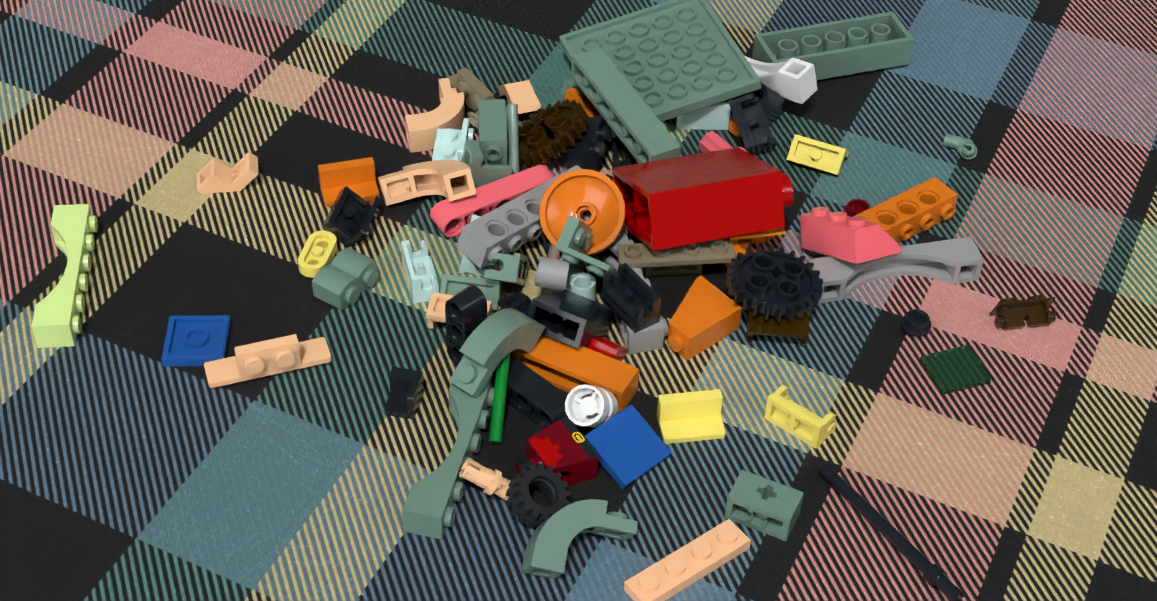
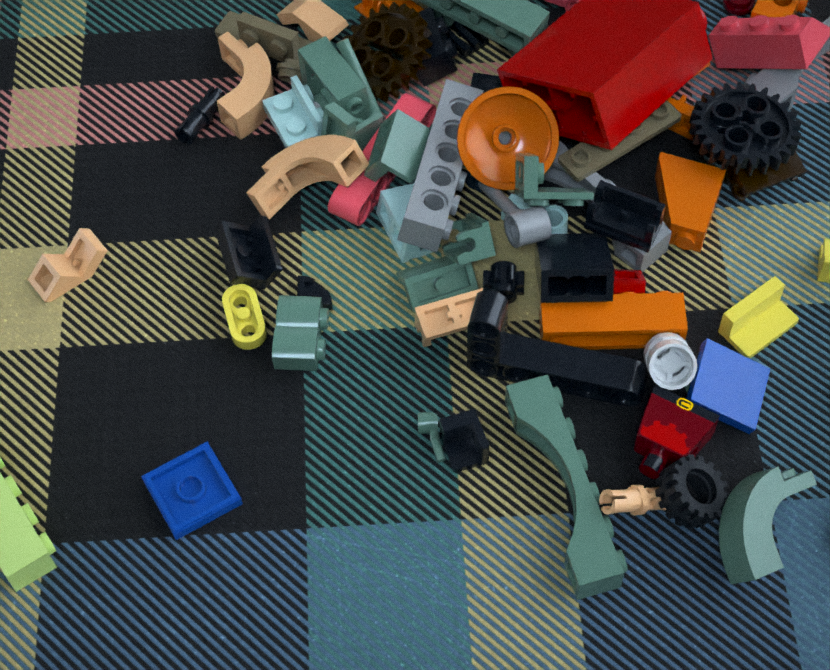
camera: 25 degrees left, 15 degrees up
(267, 359) = (290, 478): light nougat bracket -> none
(355, 174) = (205, 208): orange panel -> none
(382, 262) = (308, 287): none -> black tile
(383, 373) = (429, 425): none -> sand green hand
(389, 125) = (199, 116): none -> black pin
(419, 272) = (369, 287): light aqua hinge -> none
(490, 343) = (542, 351): sand green arch -> none
(499, 401) = (570, 397): green bar -> none
(502, 188) = (398, 148): none -> sand green panel

